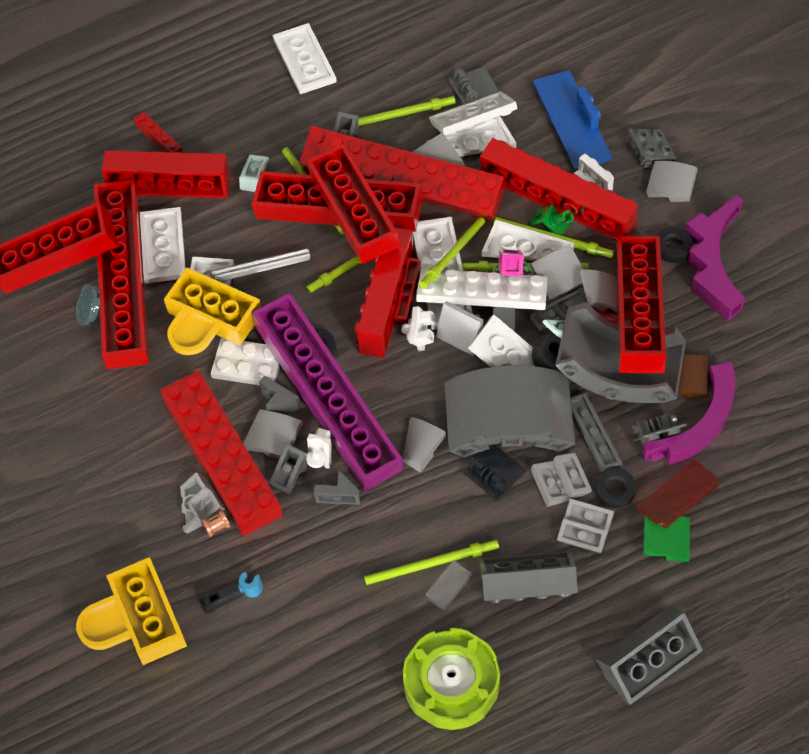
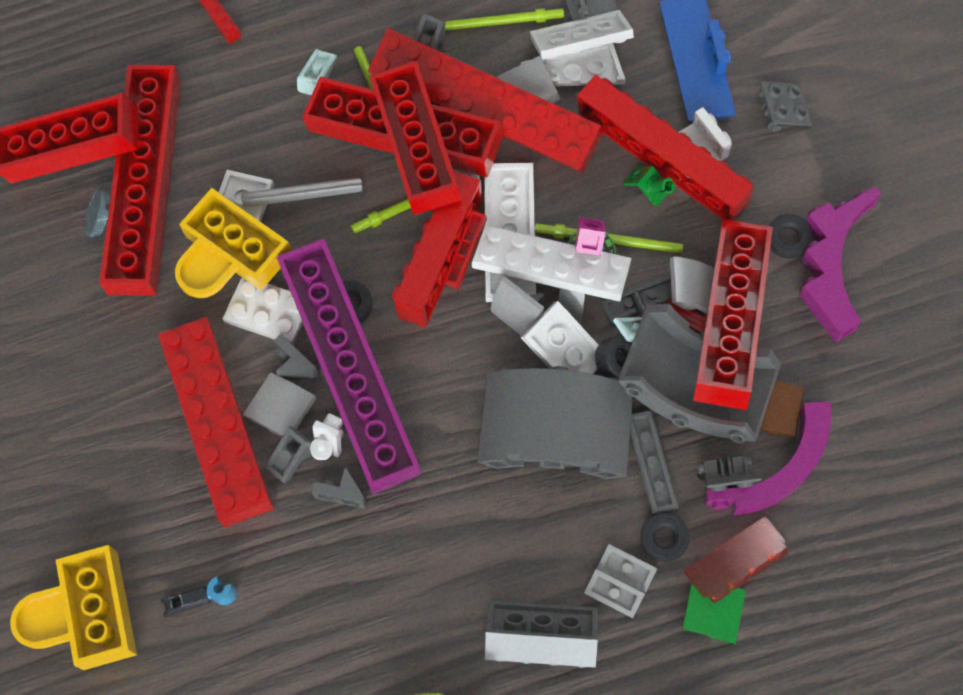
camera: 10 degrees right, 10 degrees up
(162, 245) = (196, 149): white plate -> none
(170, 173) = (217, 62): red brick -> none
(198, 501) = (181, 478): light grey slope -> none
(215, 523) = (195, 508): nougat bush -> none
(417, 328) = (469, 298): white hips -> none
(421, 443) = (448, 444): light grey slope -> none
(435, 271) = (497, 236): lime bar -> none
(448, 585) = (448, 628): clear tile -> none
(474, 550) = (486, 590): lime bar -> none
(494, 471) = (527, 494): black hinge -> none
(531, 243) = (617, 210): white wing -> none
(560, 479) = (602, 516): light grey slope -> none
(562, 271) = (649, 252): light grey slope -> none
(591, 248) = (691, 226): lime bar -> none
(672, 181) = (801, 153): light grey slope -> none

